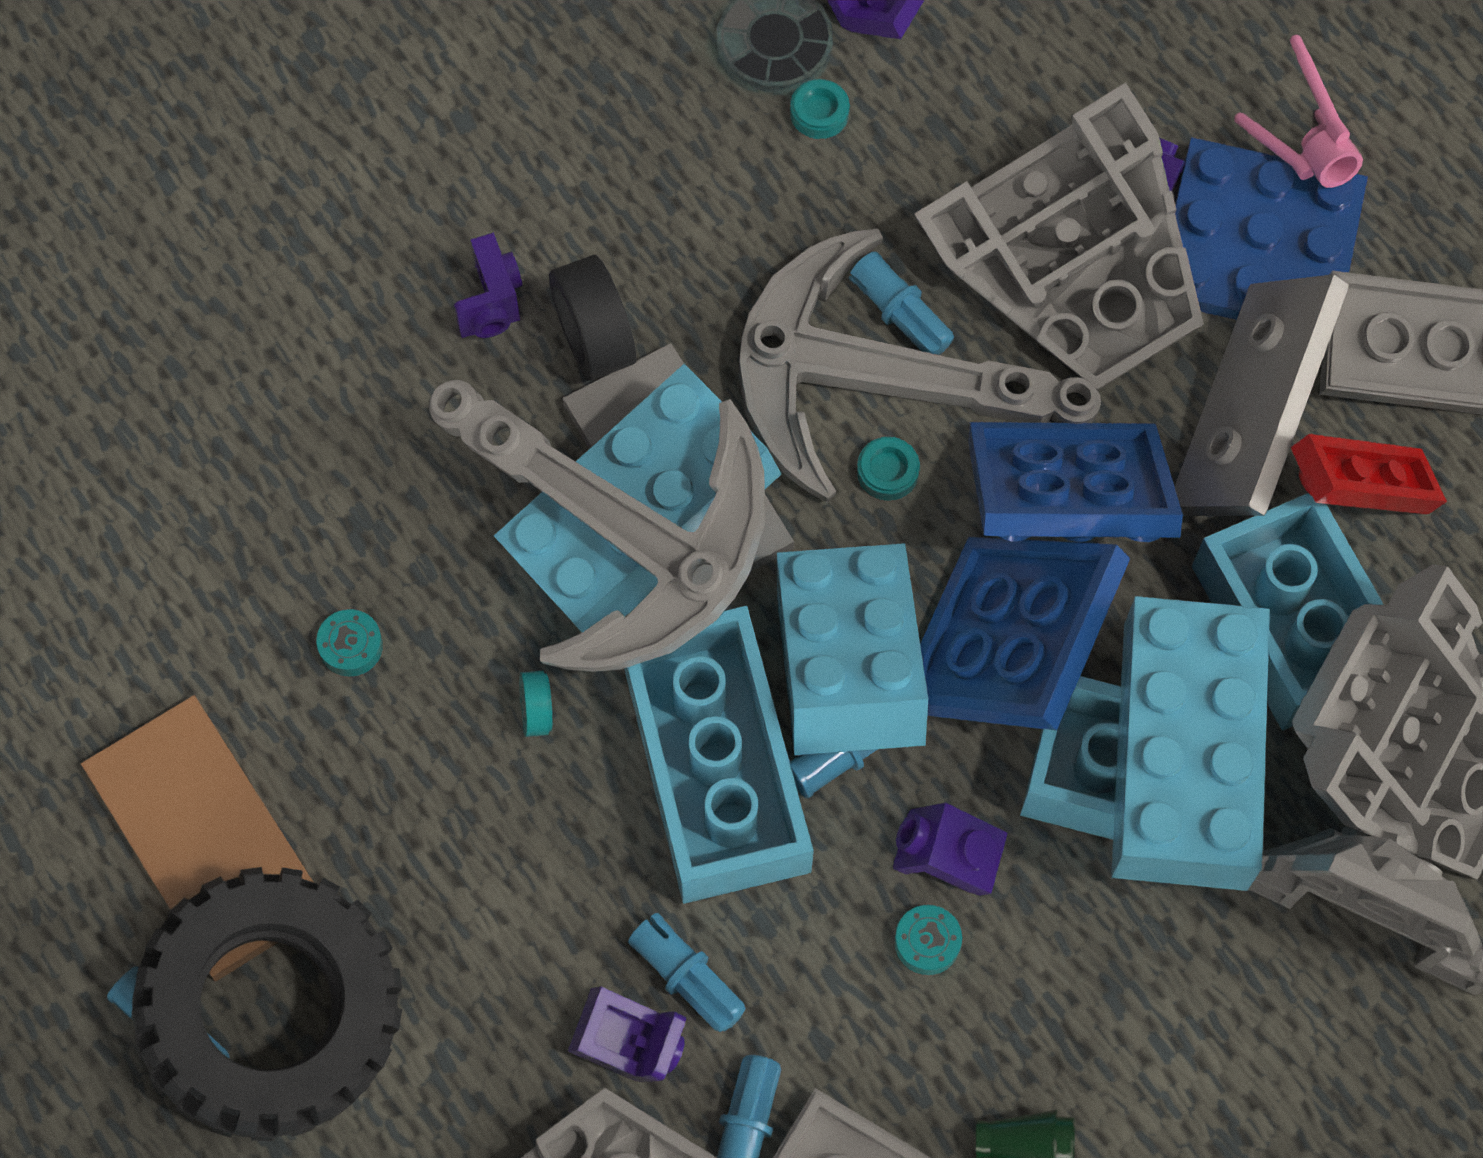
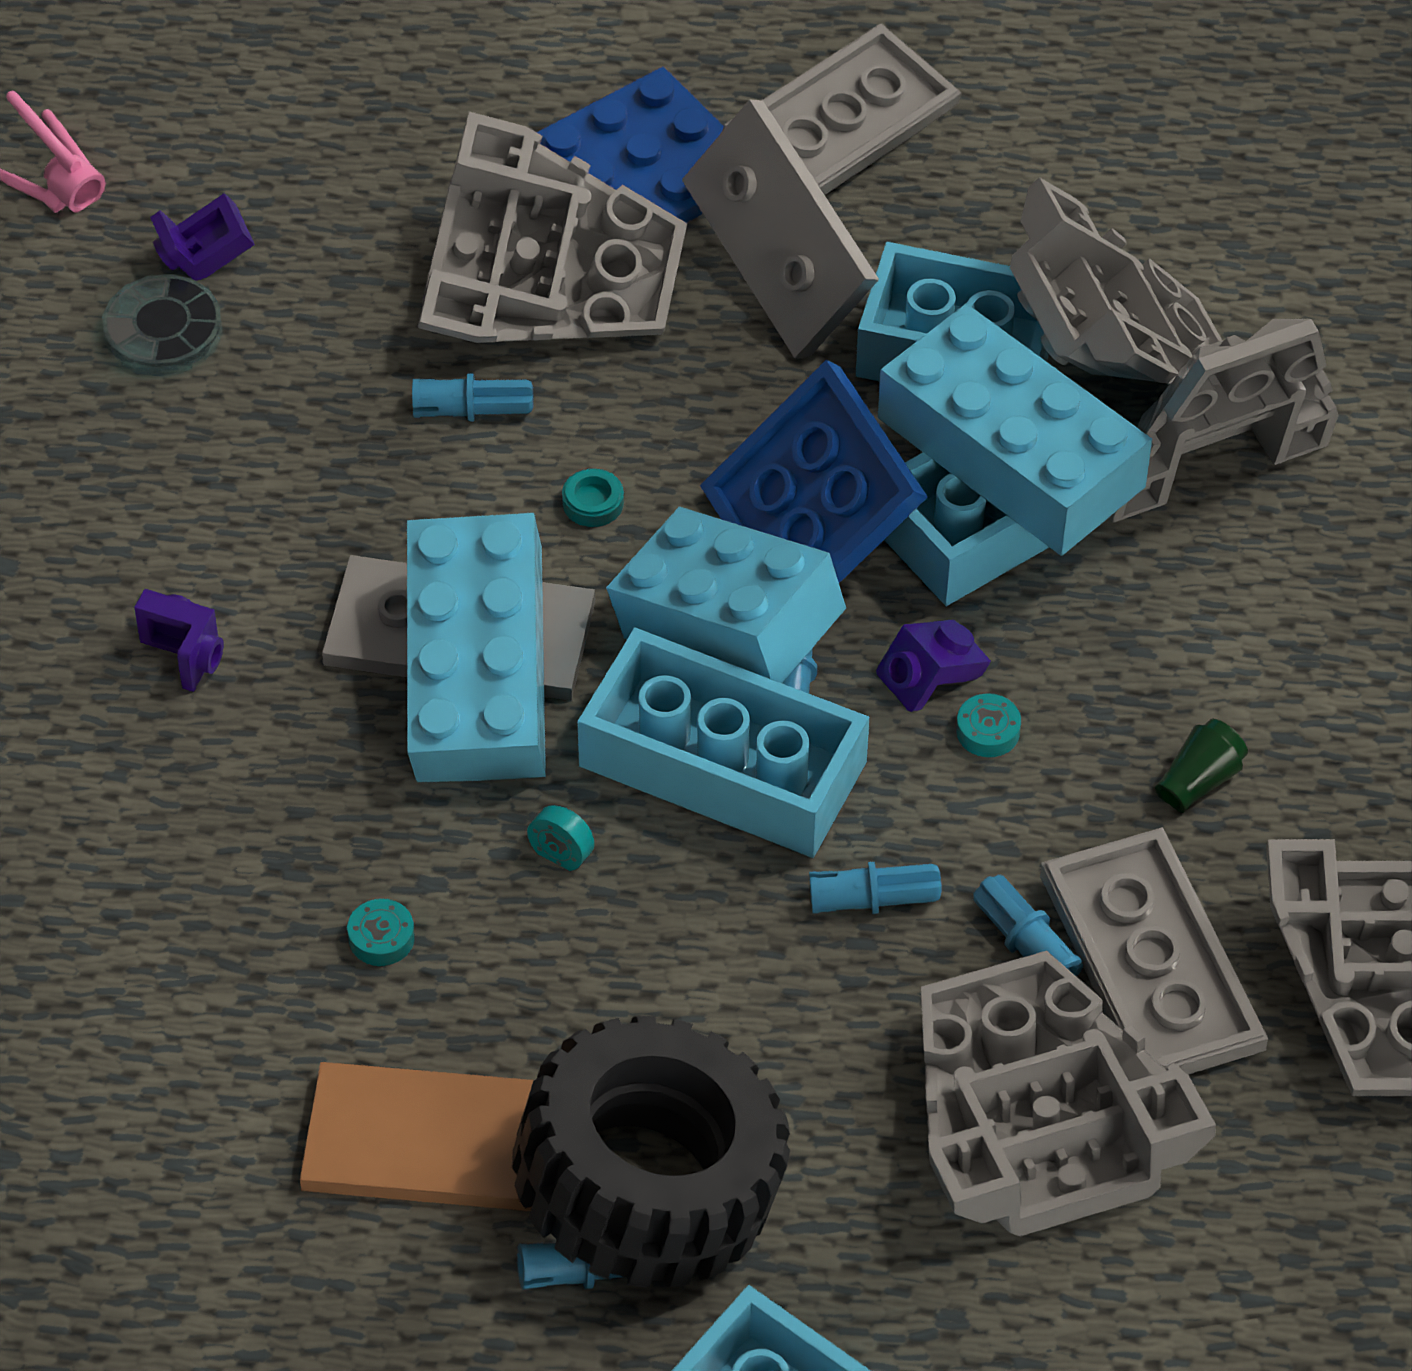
camera: 50 degrees left, 15 degrees down
(592, 317) = (297, 552): black tyre -> none
(628, 1037) = (893, 955): dark purple bracket -> none
(676, 606) = (497, 641): light grey piece -> none
(819, 109) = (251, 337): teal tile -> none
(860, 364) = (446, 483): light grey piece -> none
(1073, 481) = (731, 378): blue plate -> none
(1327, 147) = (626, 63): bright pink plant -> none
(1367, 474) = (899, 214): red plate -> none

